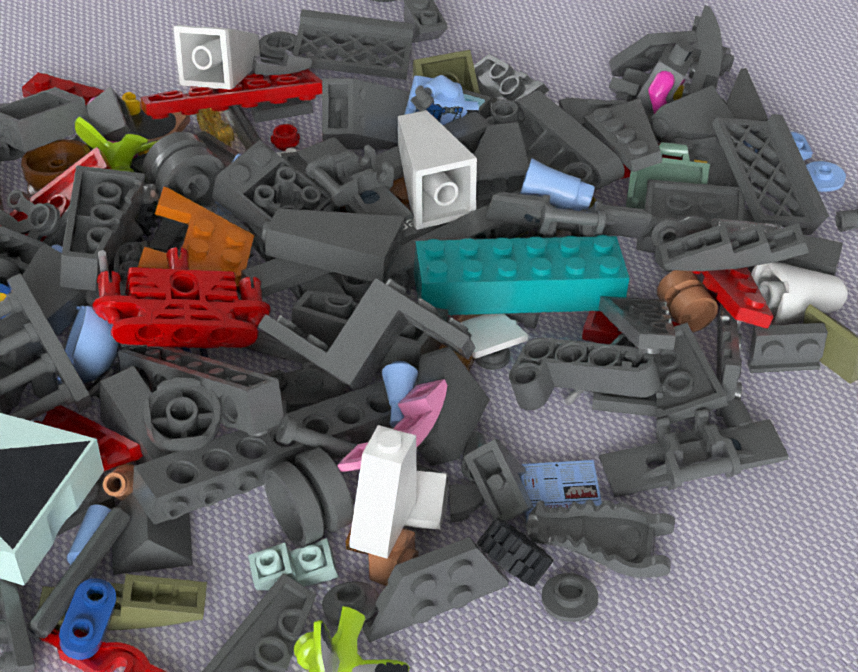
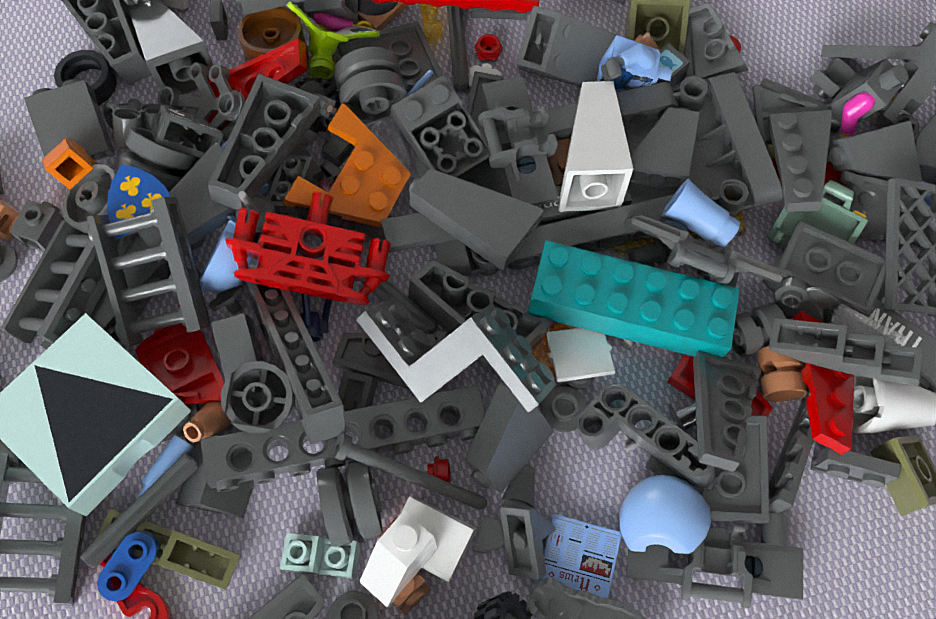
camera: 20 degrees right, 25 degrees up
(399, 381) = (471, 405): light blue cone -> none
(420, 413) = (450, 475): bright pink slope -> none
(494, 383) = (563, 408): none -> dark grey piece
(622, 416) = (664, 513): none -> light blue cylinder
(646, 274) = (754, 329): none -> dark grey wheel

